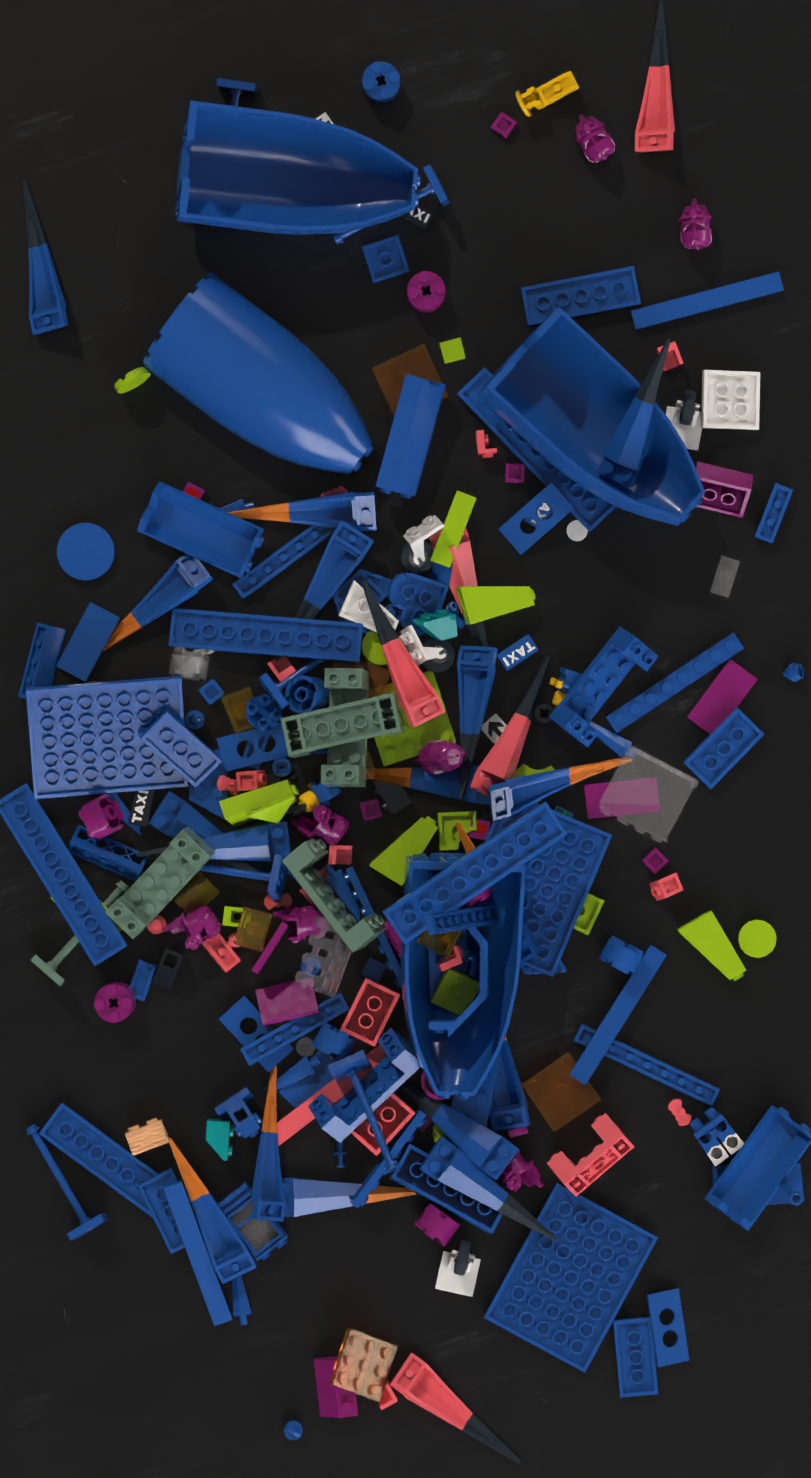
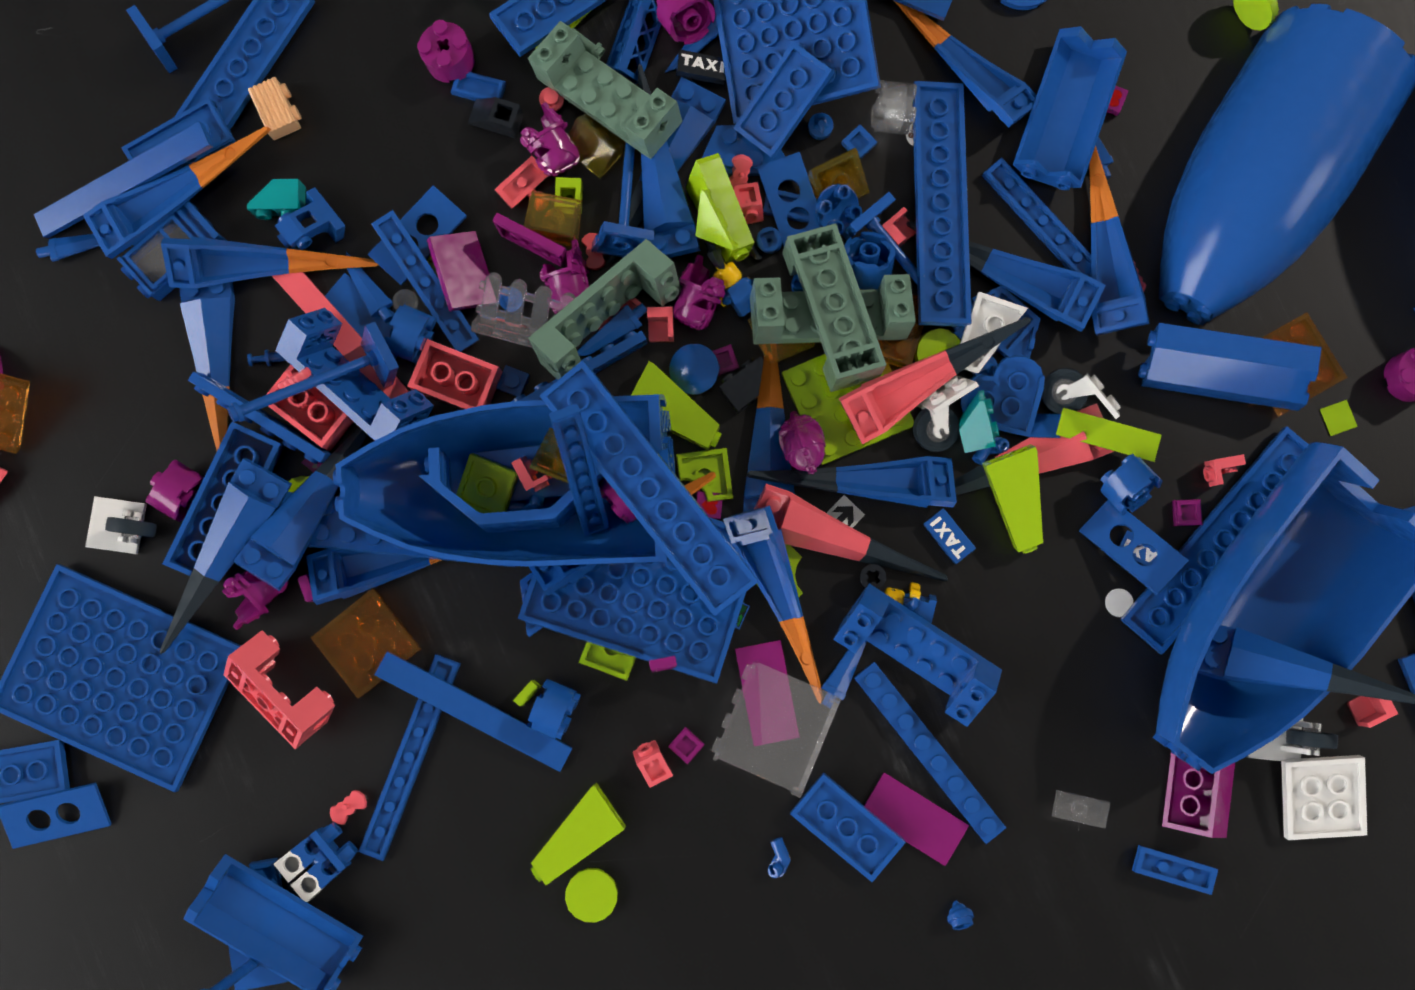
camera: 95 degrees right, 5 degrees down
(365, 1129) = (294, 378): none -> coral piece
(376, 832) = (694, 368): none -> blue dish
(492, 517) = (1130, 484): none -> blue brick
(595, 873) = (663, 664): none -> magenta tile
(607, 974) = (527, 693): none -> lime tile
(743, 798) = (781, 859): none -> blue arm

